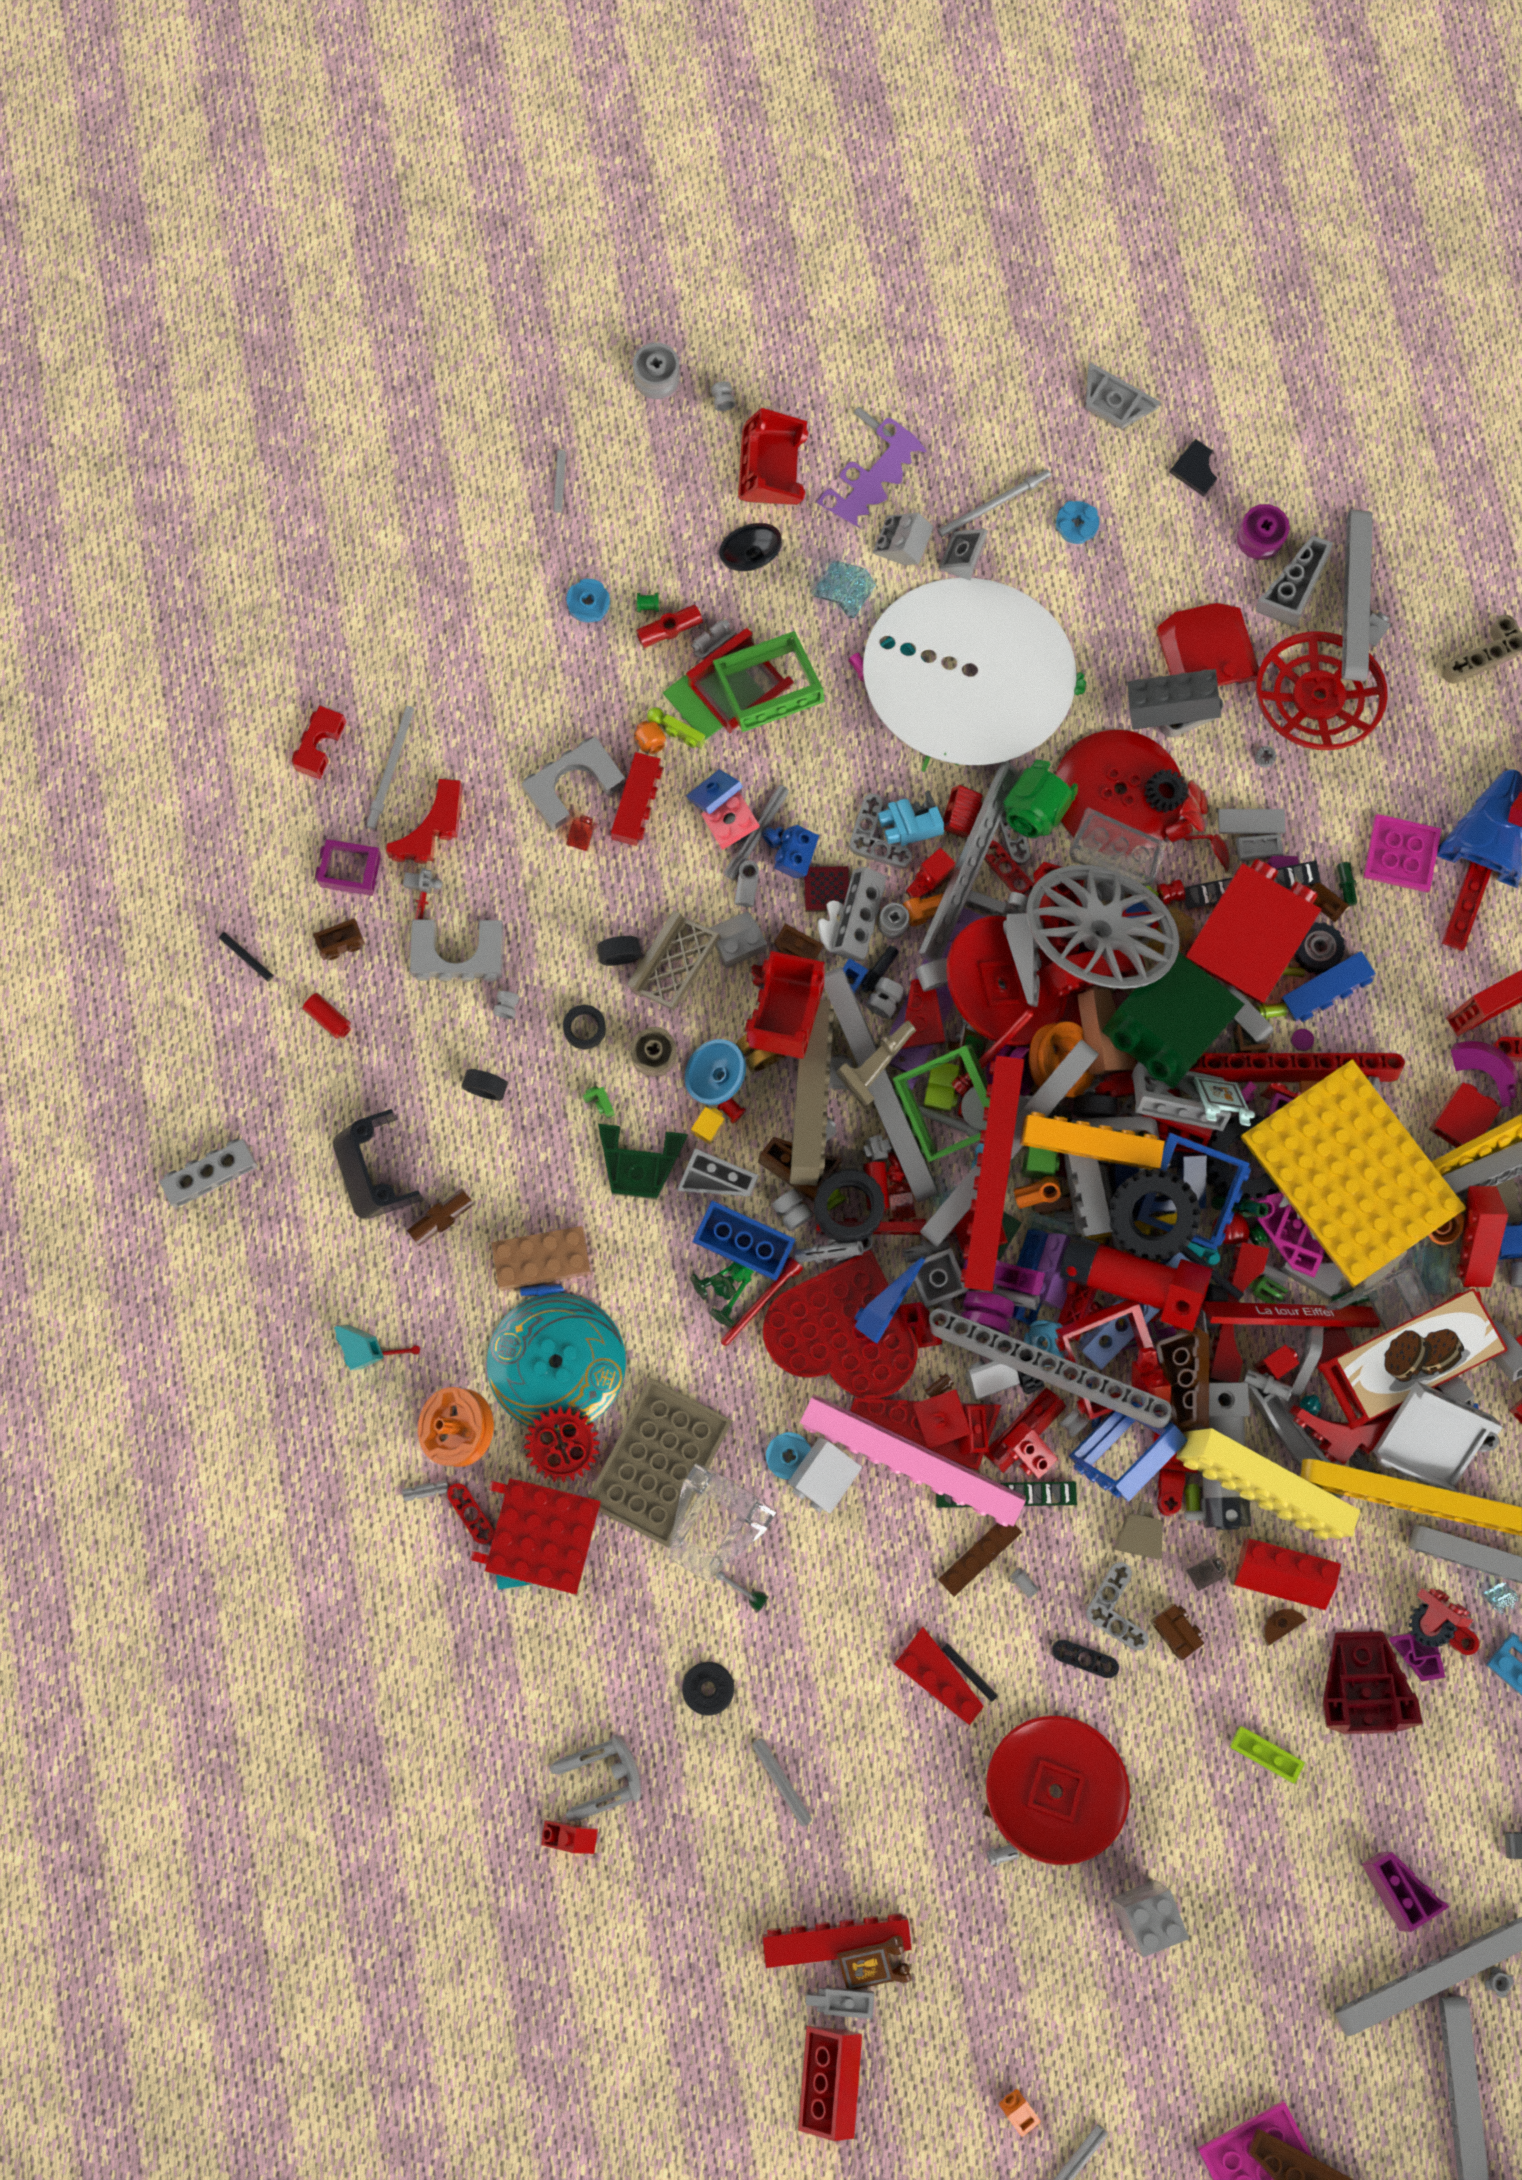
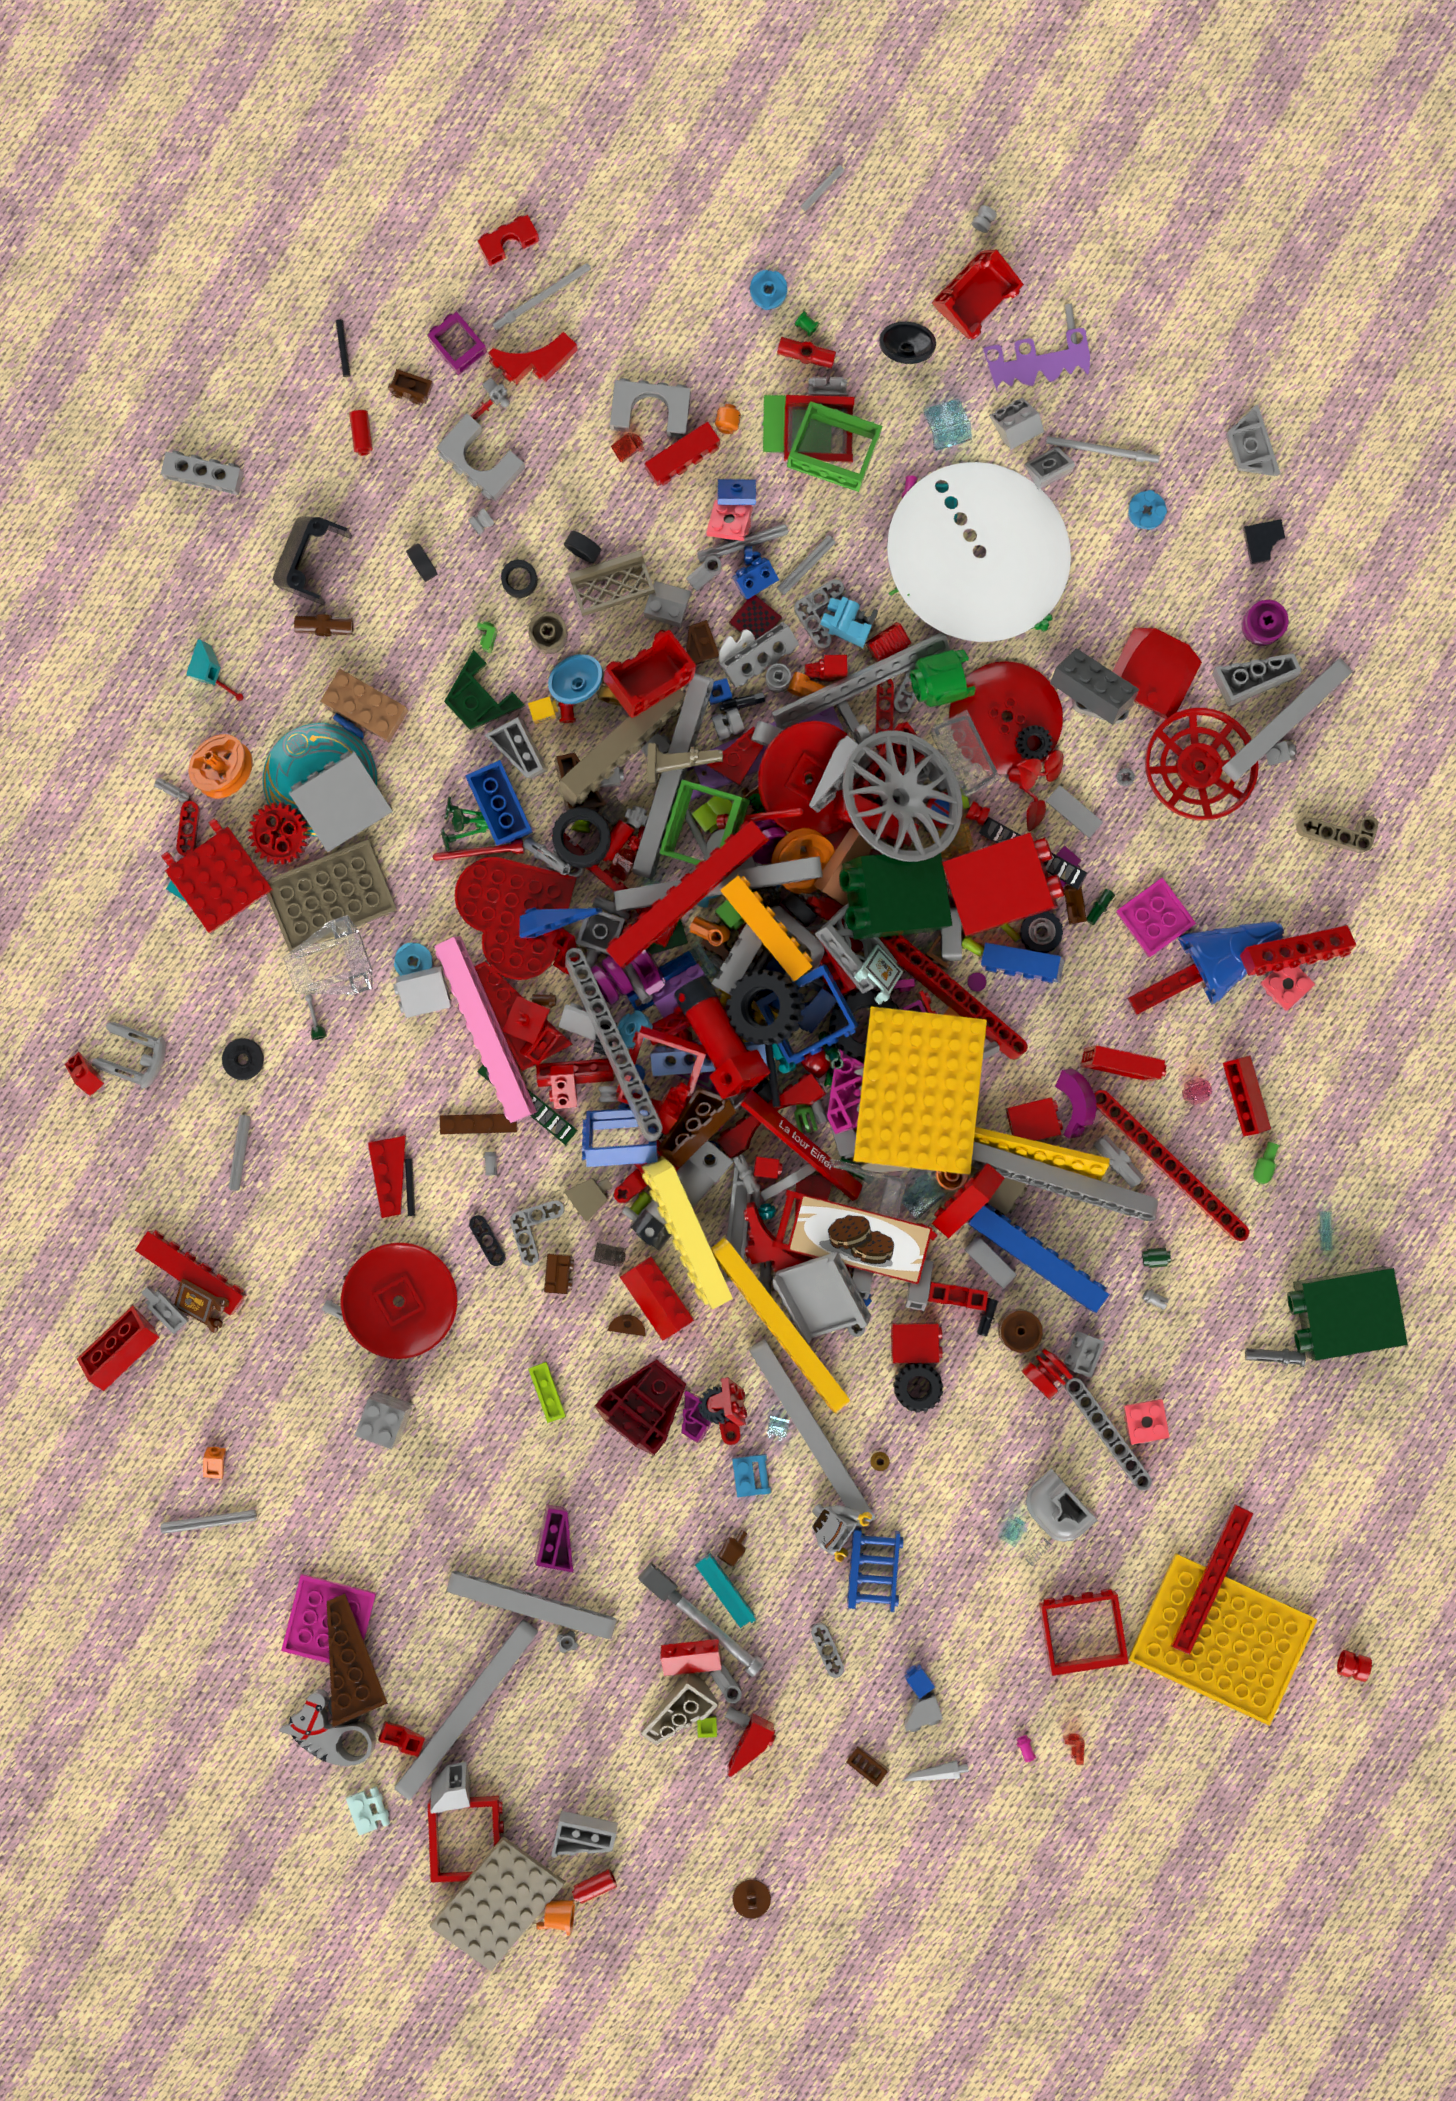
camera: 40 degrees right, 10 degrees up
(595, 1363) = (340, 800): none -> light grey panel
(656, 370) = (953, 162): light grey wheel -> none
(674, 728) = (749, 427): lime plate -> none
(792, 1209) = (548, 809): light grey wheel -> none
(829, 805) = (806, 565): none -> light grey axle
(1259, 847) = (1064, 833): light grey plate -> none

